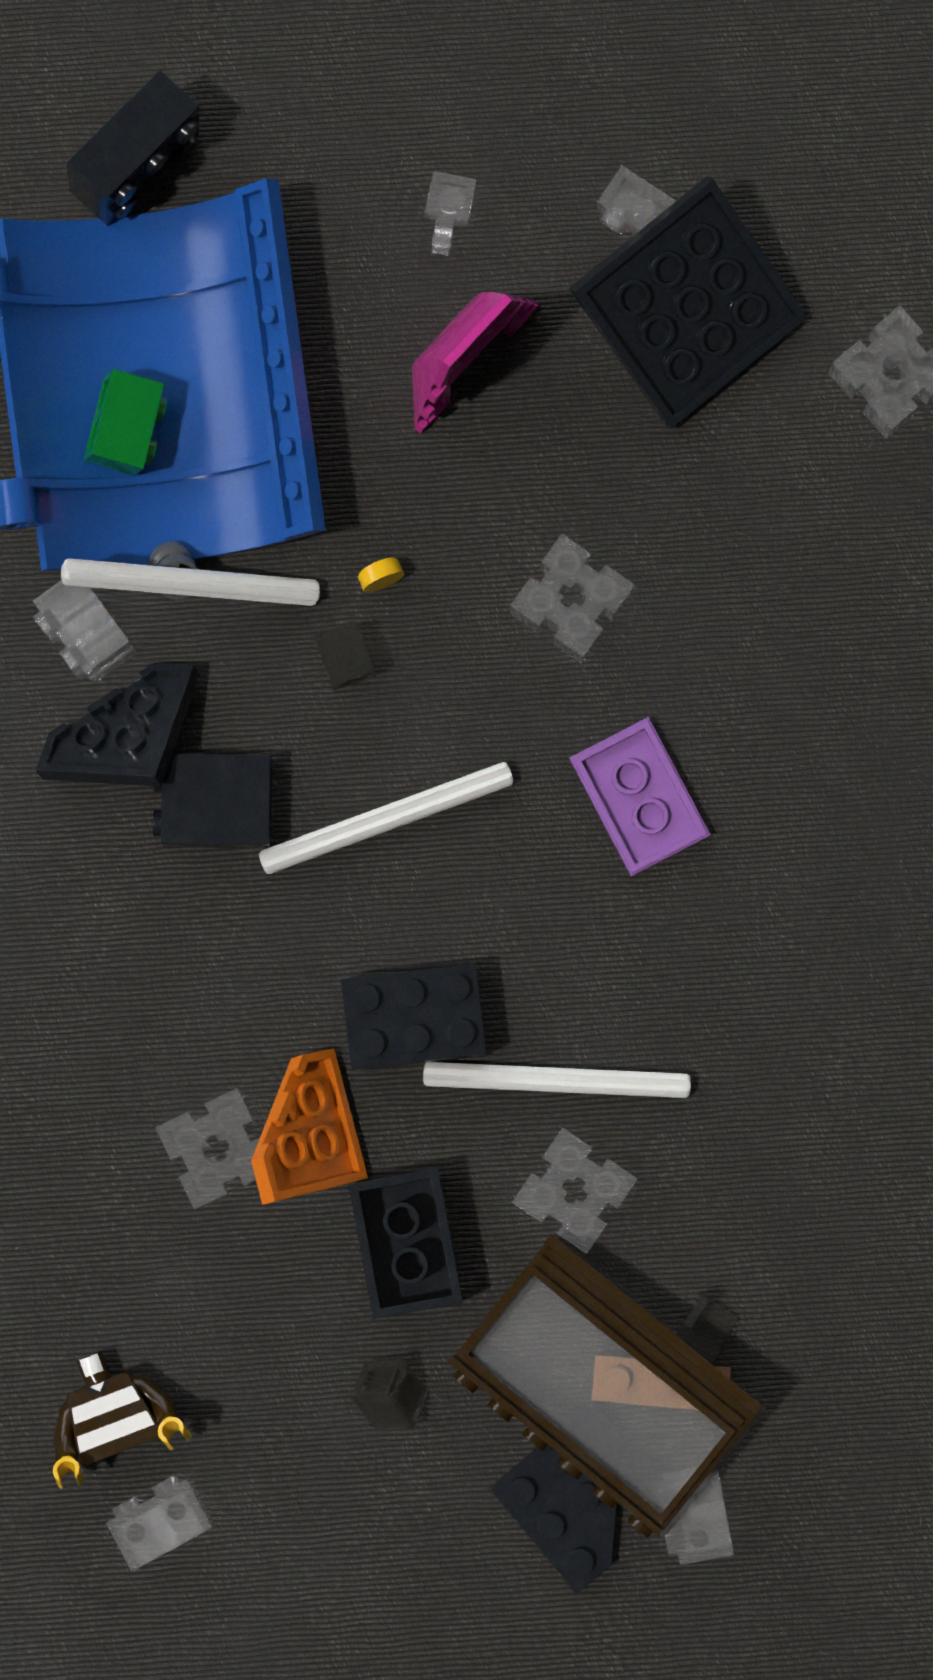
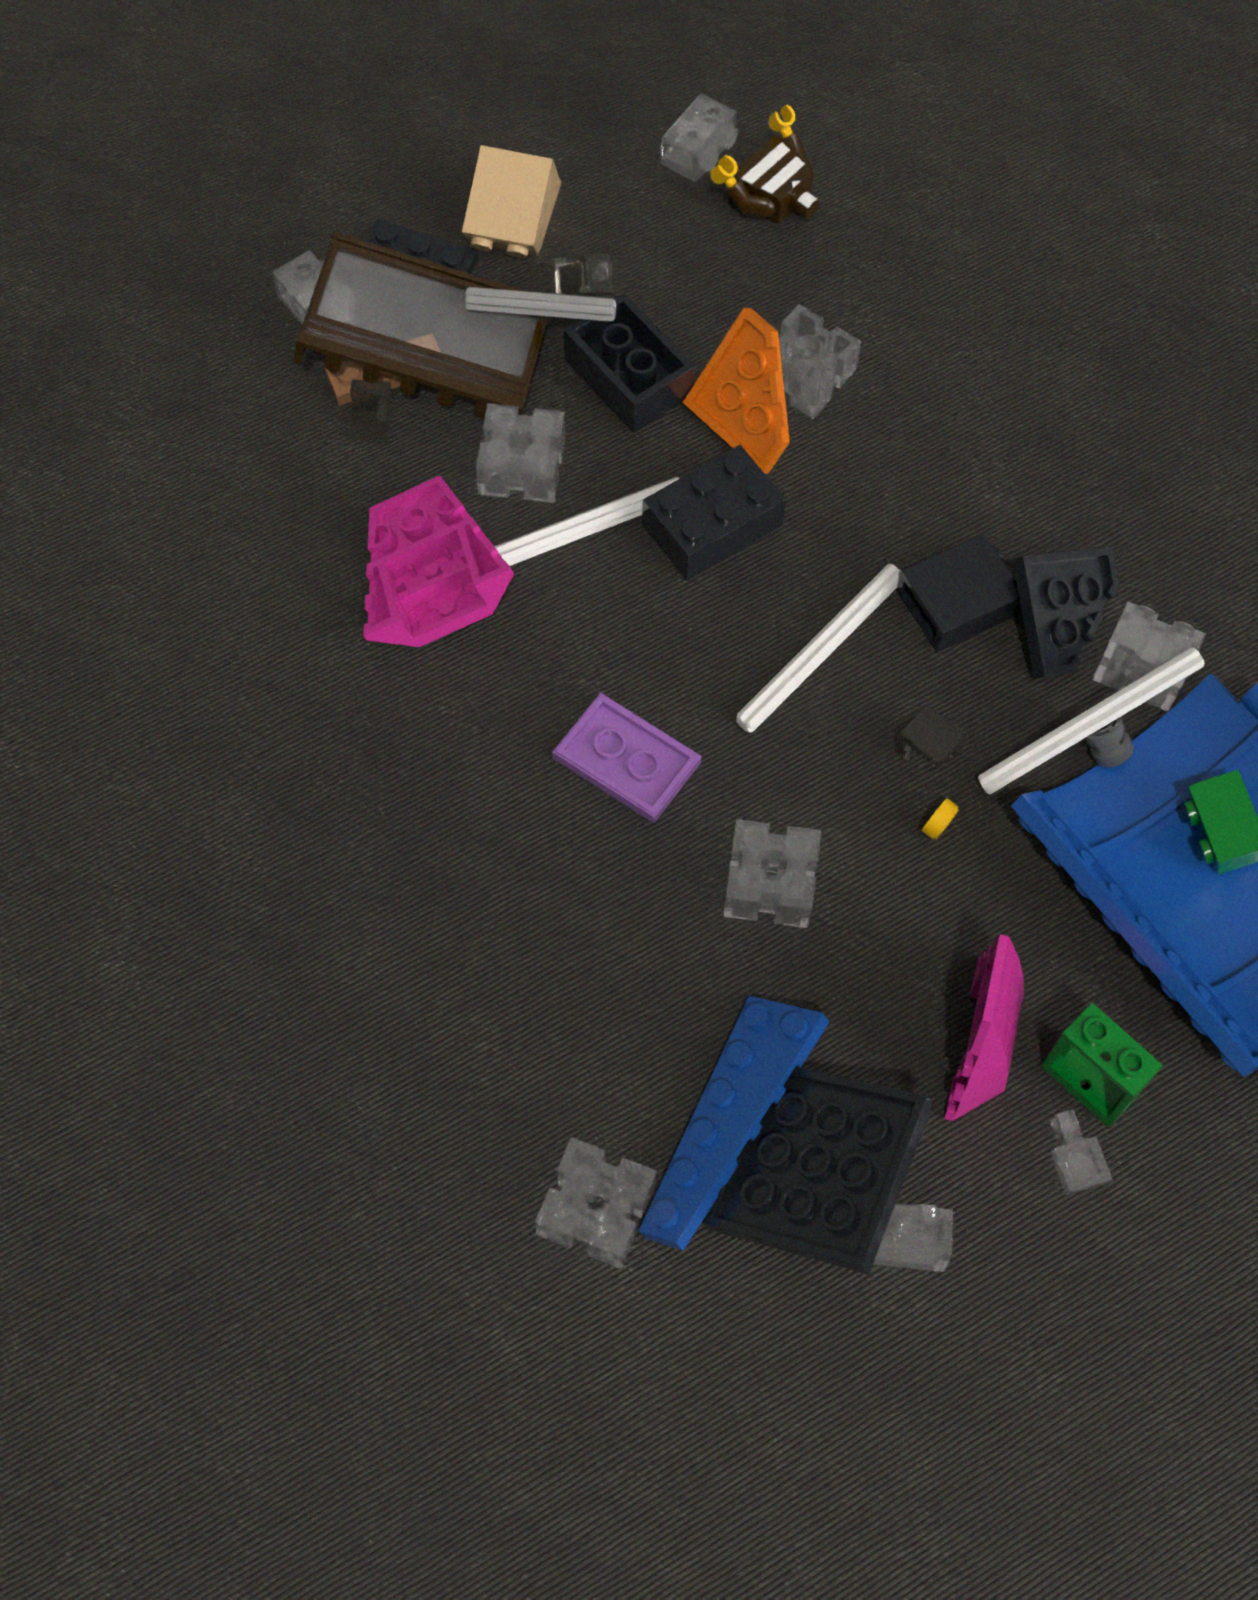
camera: 150 degrees right, 20 degrees down
(390, 259) = (1112, 1083): none -> green window
(422, 1529) = (510, 202): none -> tan slope
(474, 1341) = (540, 304): none -> light grey axle
(702, 415) = (747, 1079): none -> blue wing
(737, 1101) = (428, 567): none -> dark pink wedge

